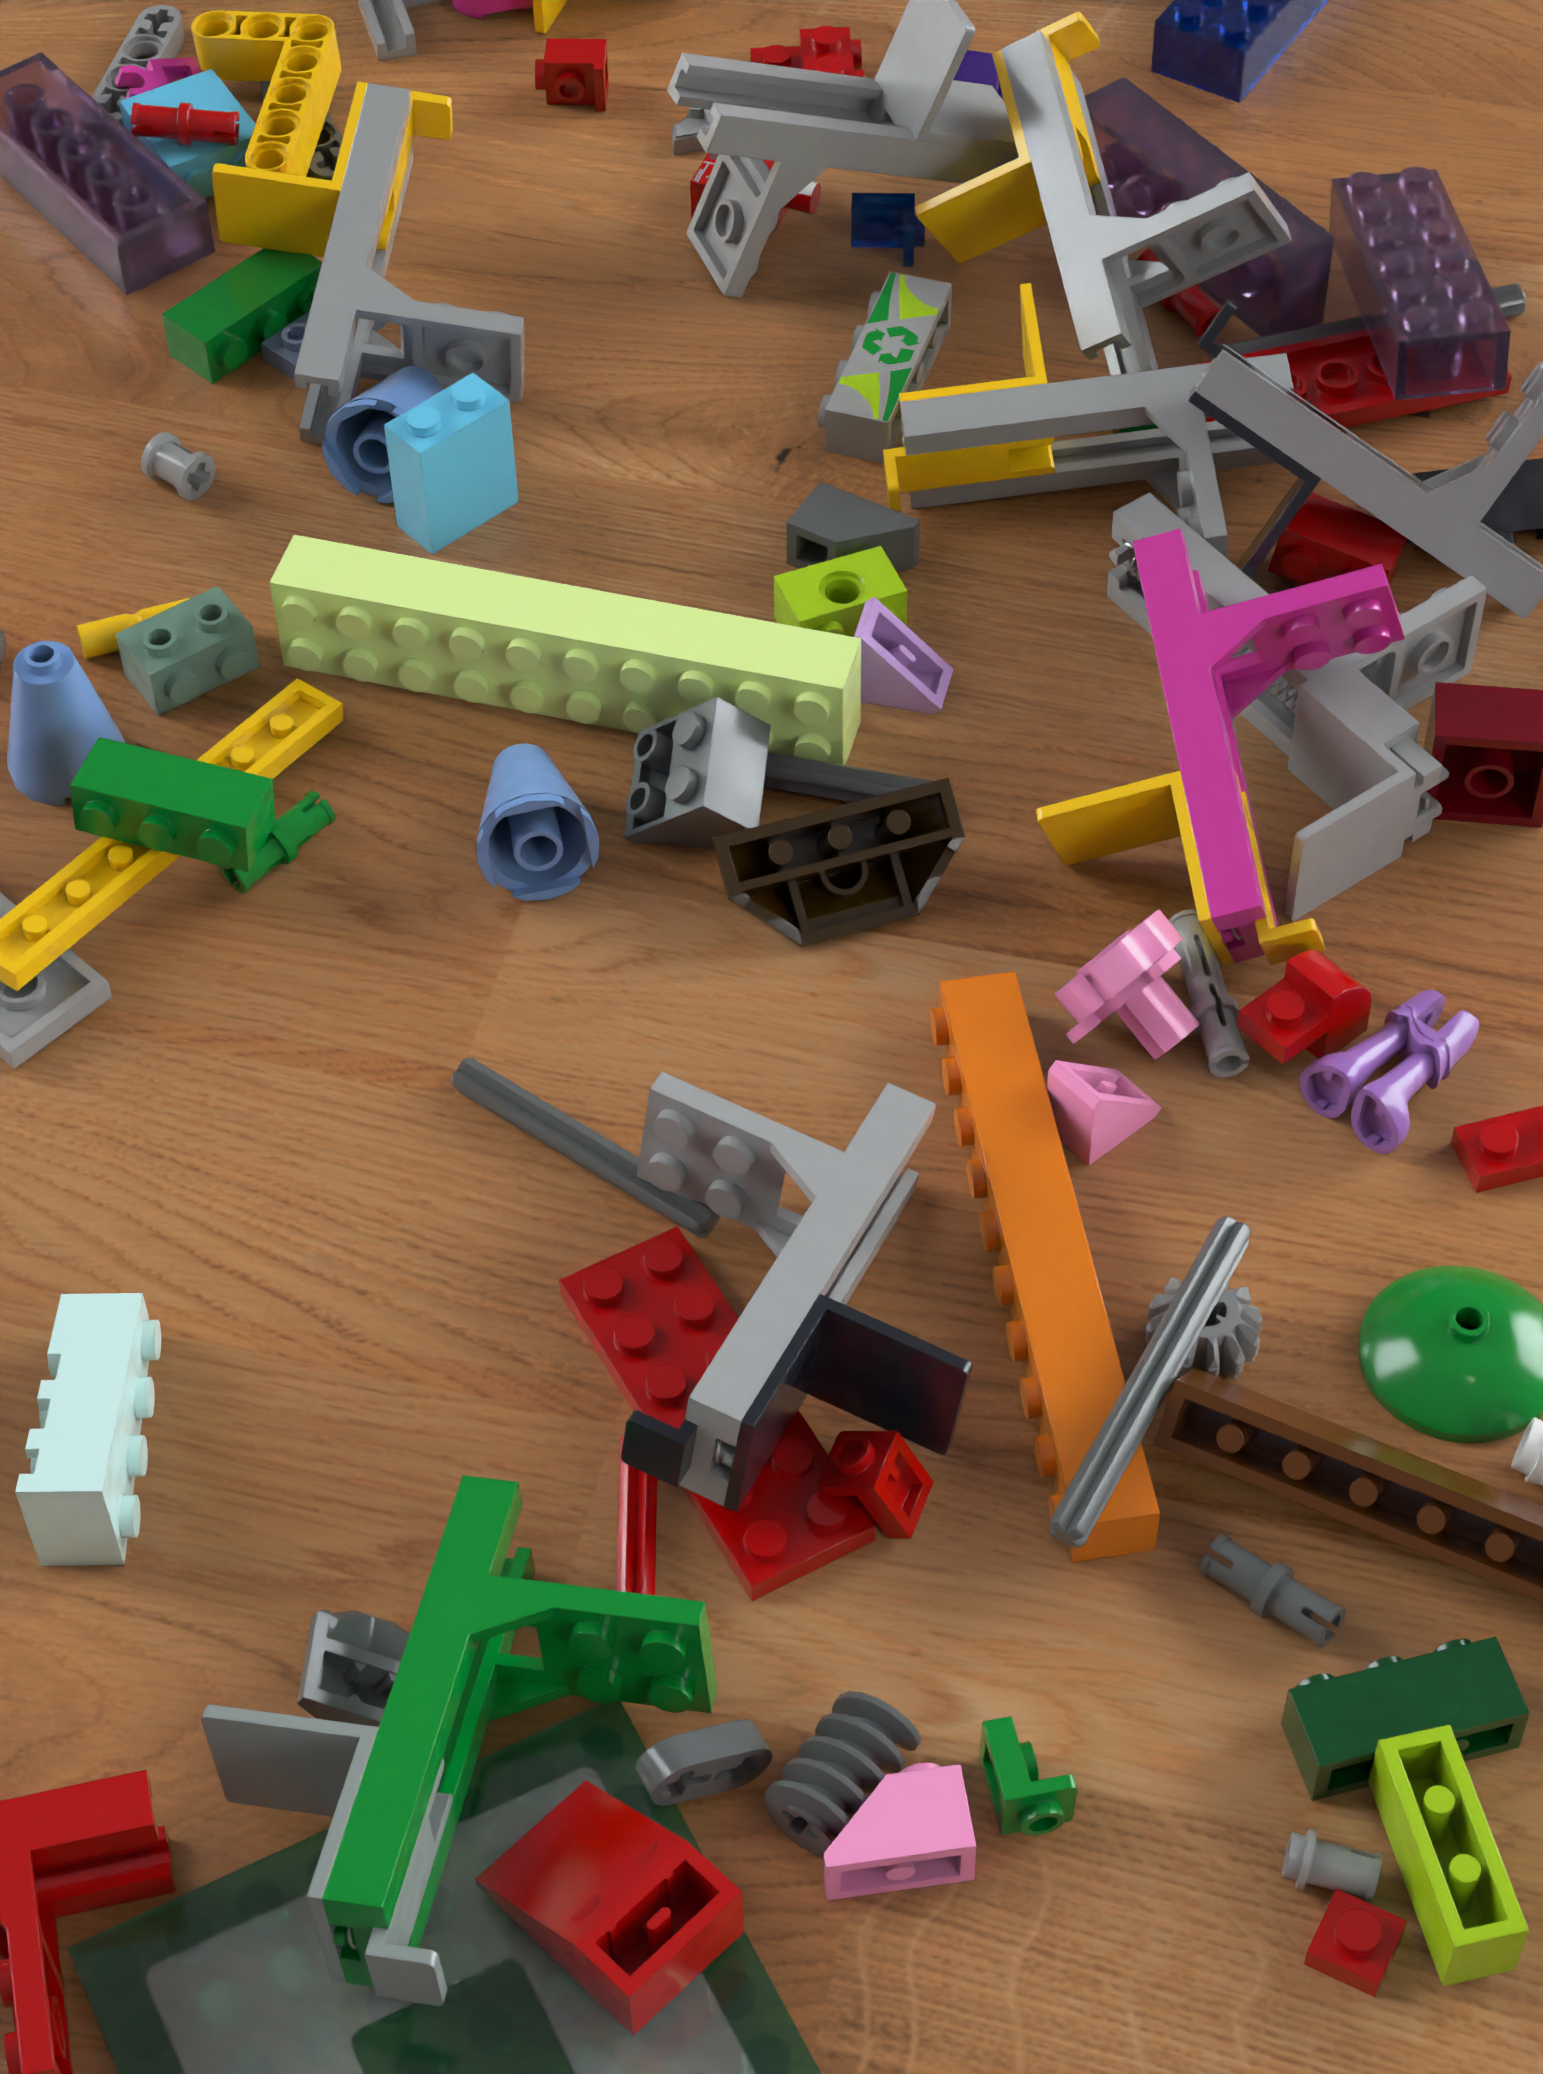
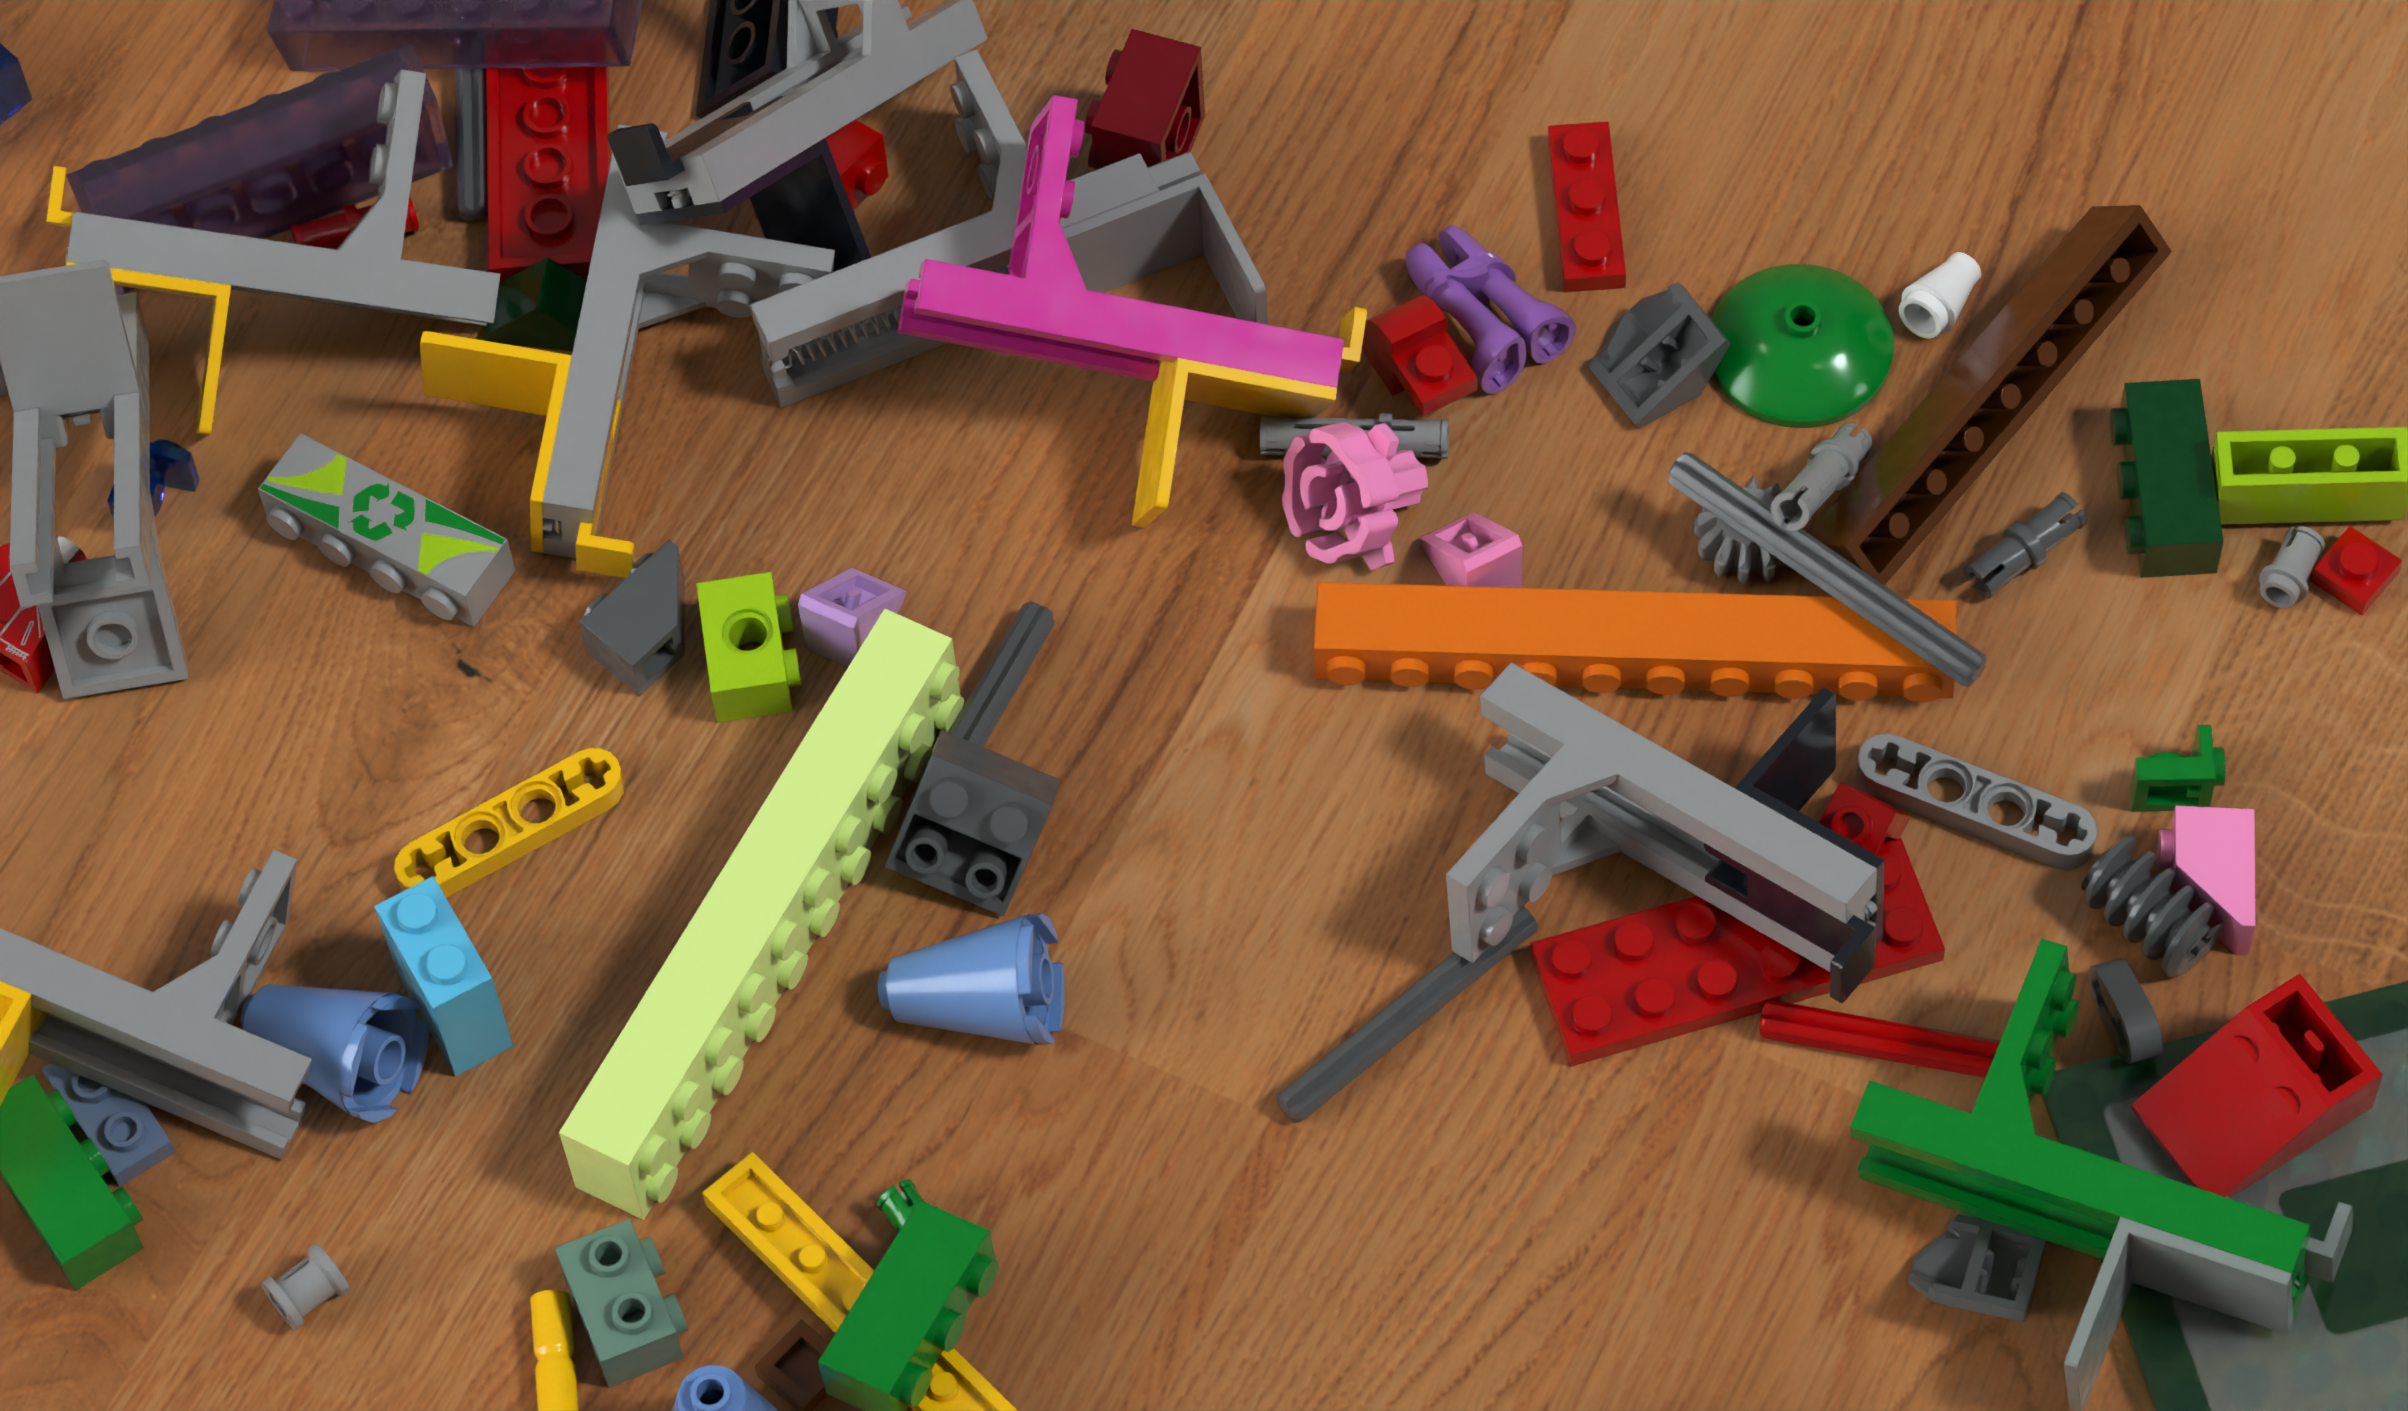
camera: 75 degrees left, 10 degrees up
(641, 497) = (504, 817): none -> yellow beam
(844, 863) = (1118, 702): dark brown wedge -> none
(942, 1594) = (1981, 791): none -> light grey beam
(1292, 1377) = (1827, 470): none -> light grey pin
(1383, 1221) = (1659, 355): none -> dark grey slope

